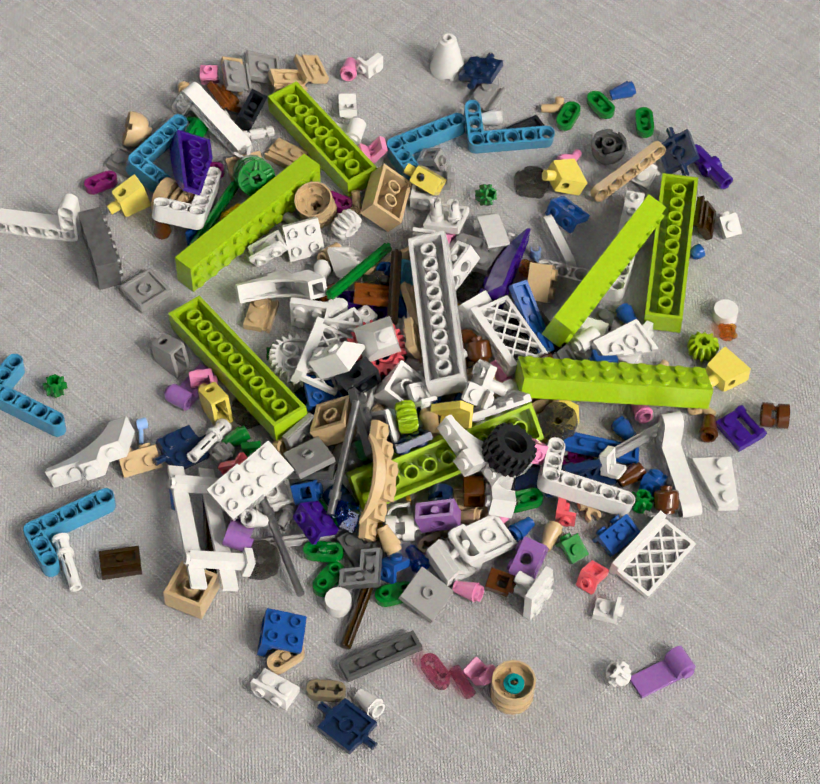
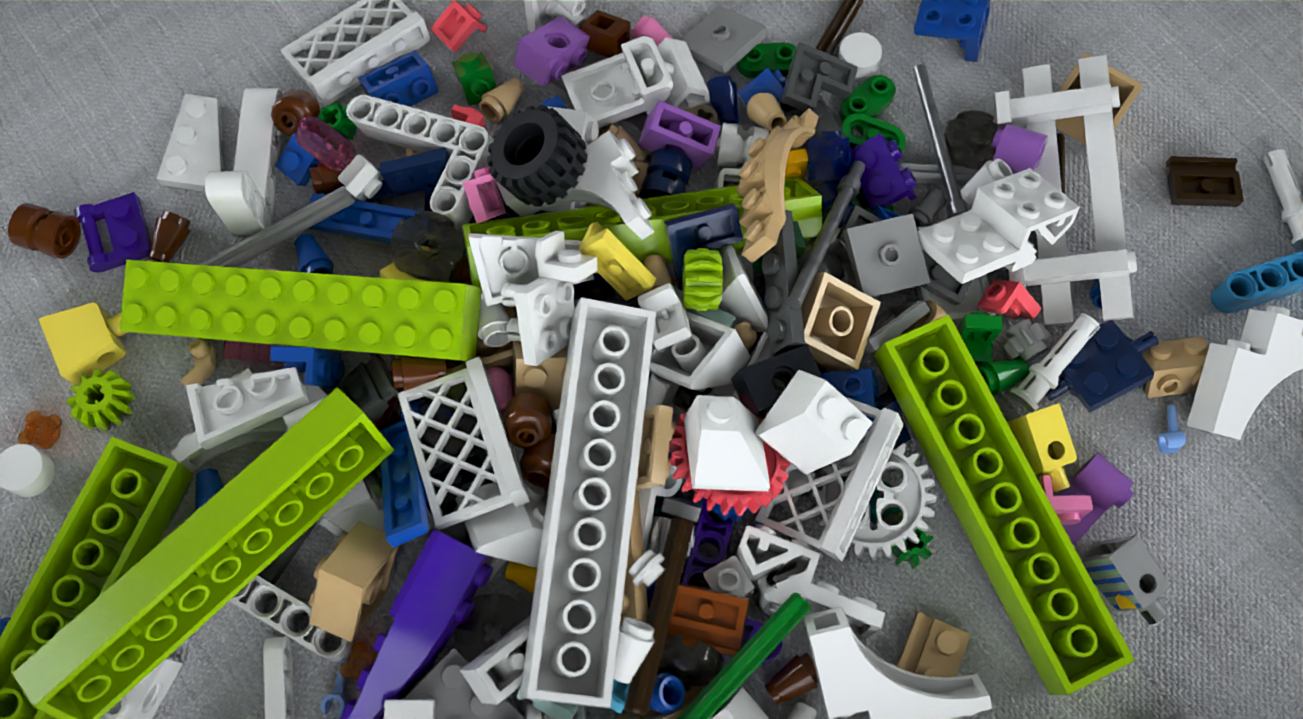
camera: 170 degrees left, 15 degrees up
(403, 267) = (632, 647): none -> white cone
(404, 296) = (647, 568): none -> white plate
(637, 483) = (325, 143): none -> clear pink beam

